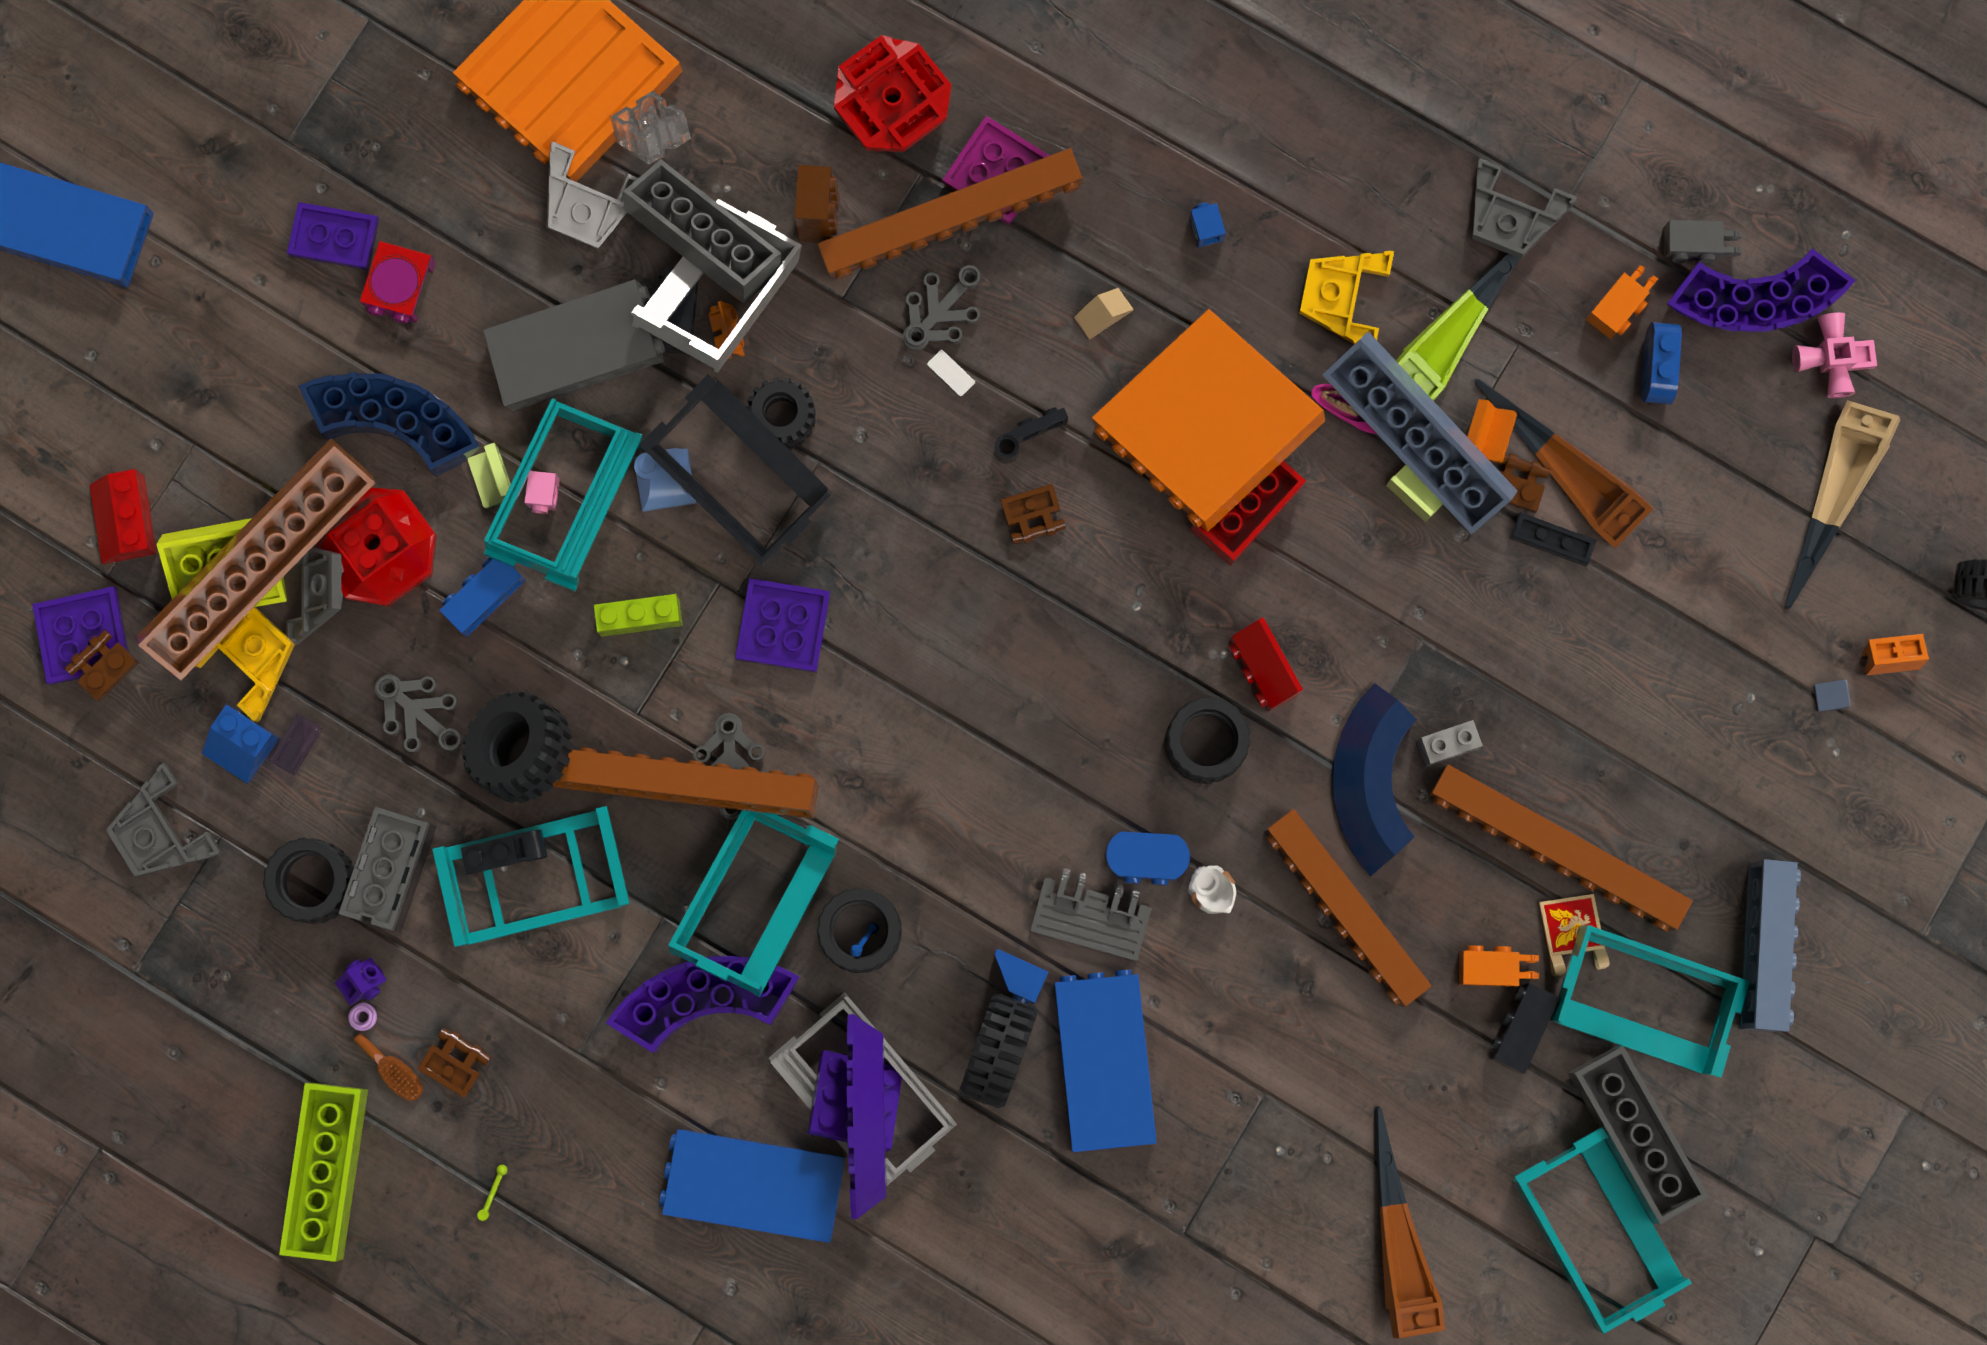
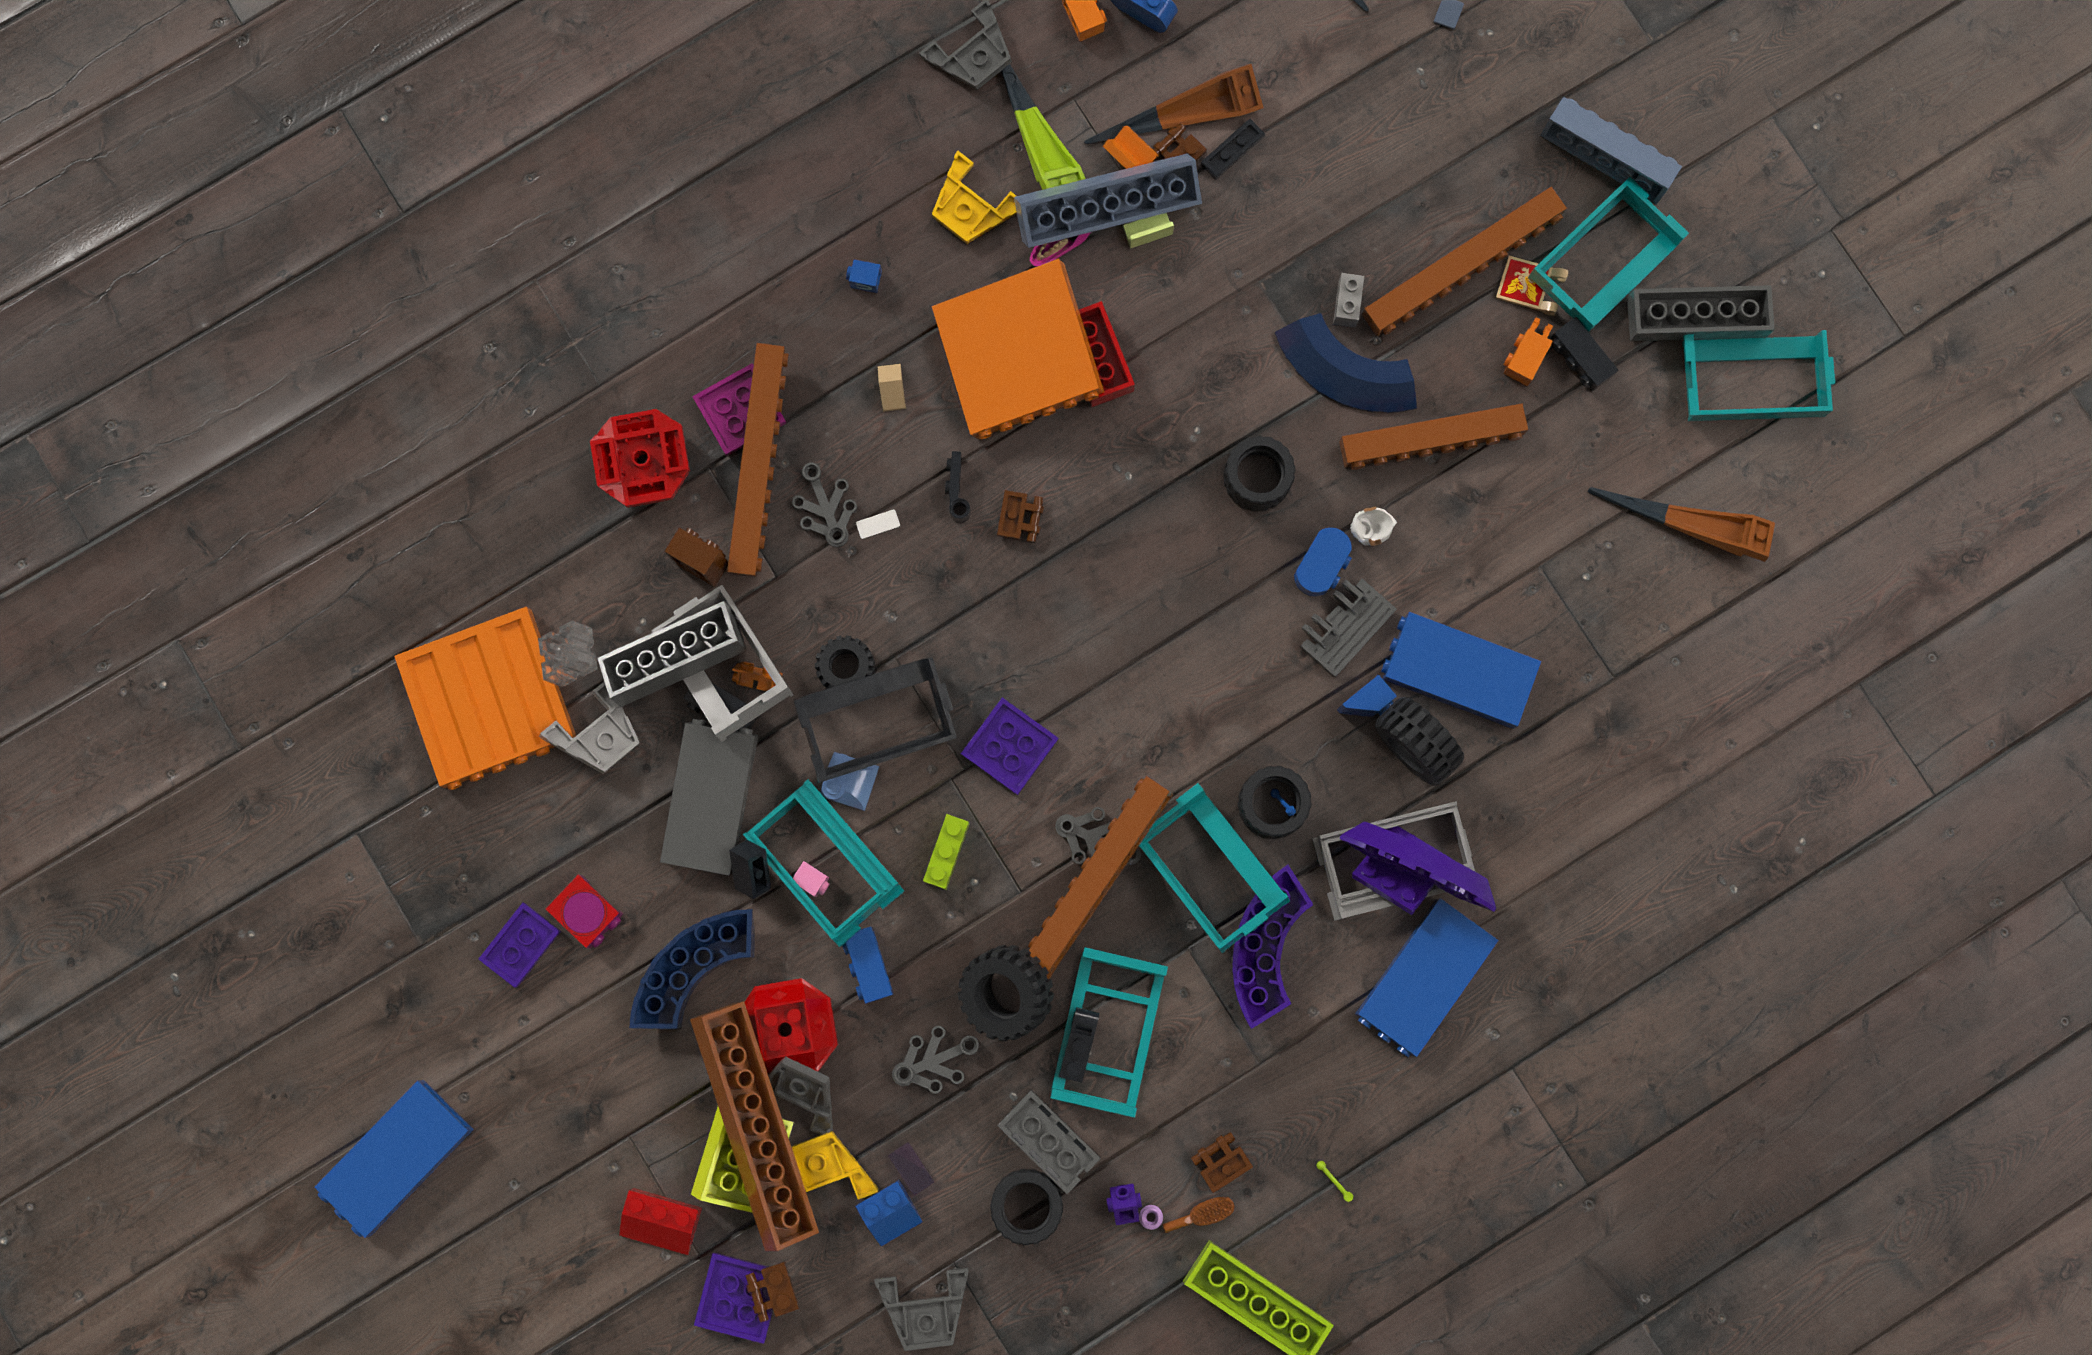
camera: 60 degrees left, 0 degrees up
(490, 476) = (777, 914): yellowish green panel -> none
(519, 423) = (750, 869): none -> black brick
(1264, 665) = (1224, 402): red slope -> none

